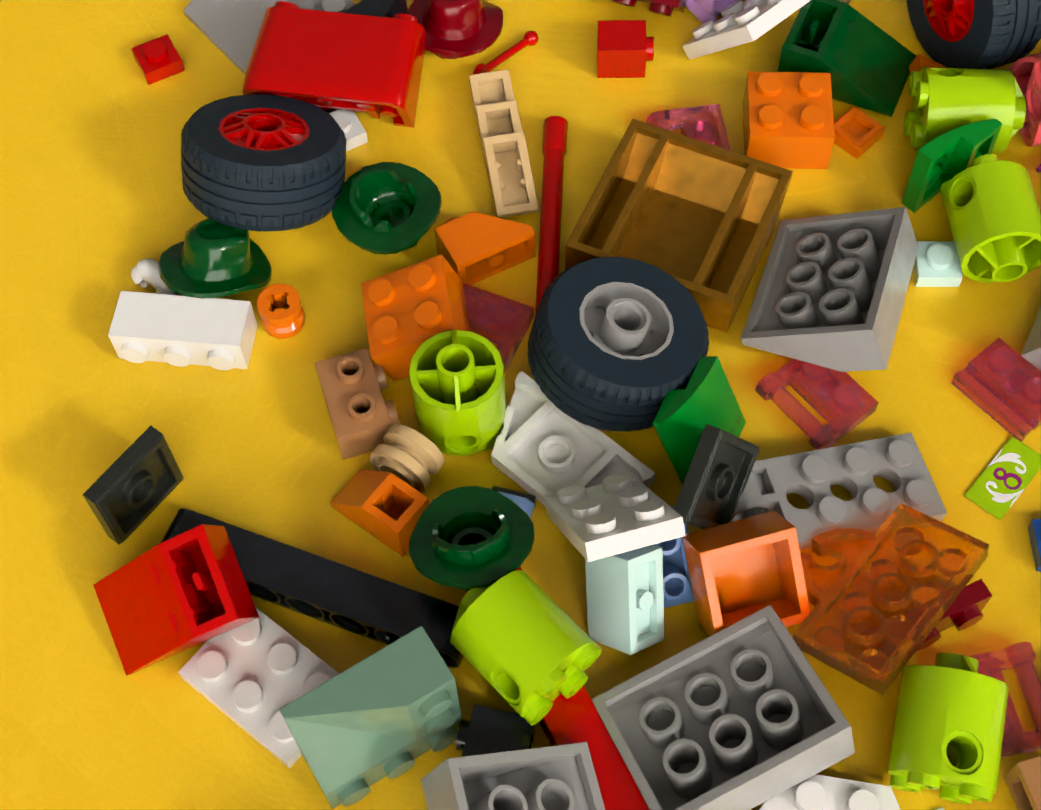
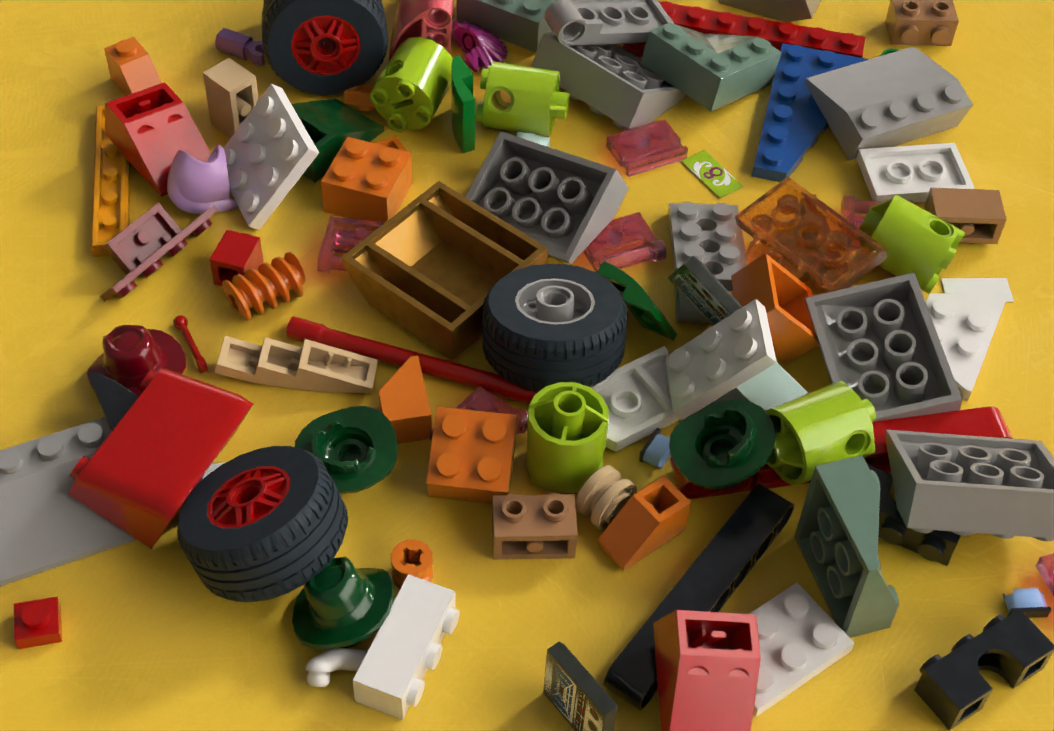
camera: 80 degrees left, 10 degrees down
(590, 82) = (265, 285): none -> orange piece

